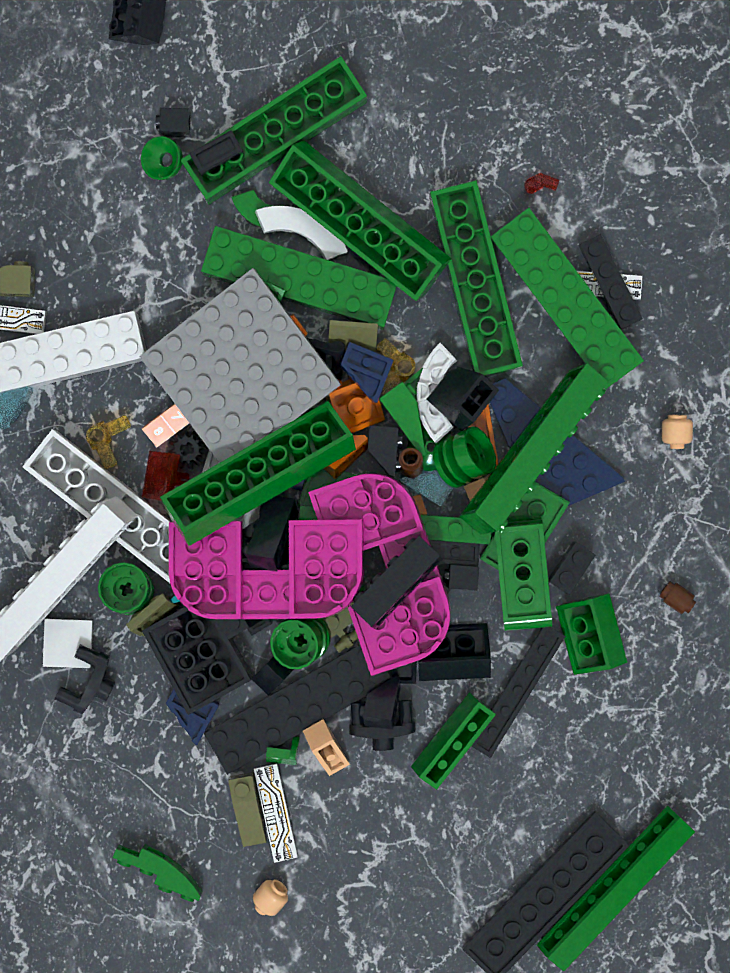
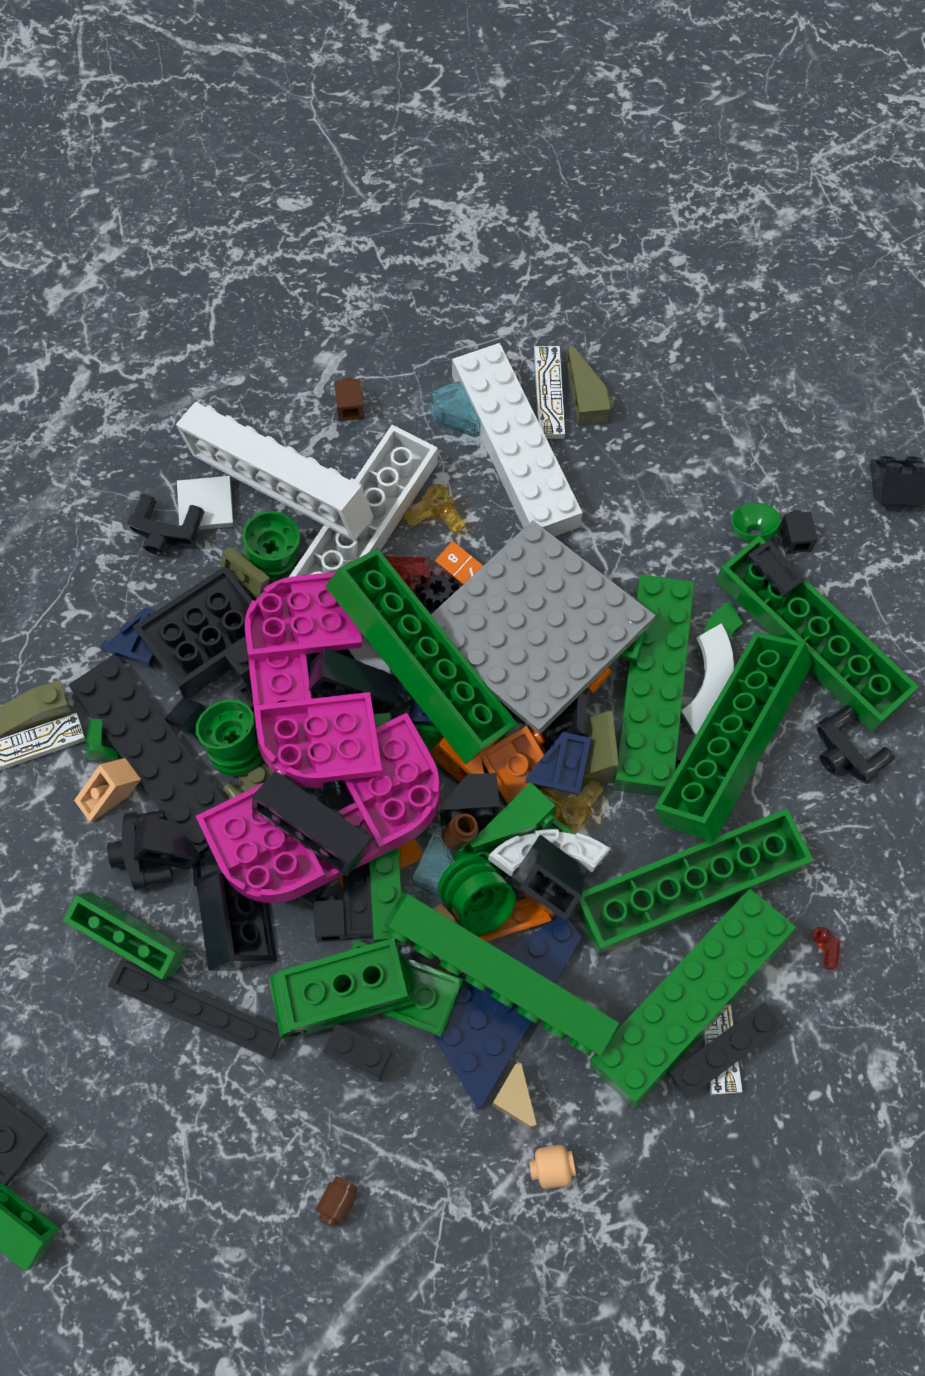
camera: 80 degrees right, 20 degrees down
(383, 133) = (842, 754): none -> black connector
(591, 634) = (276, 1094): green slope -> none
(622, 452) = (515, 1098): none -> tan slope

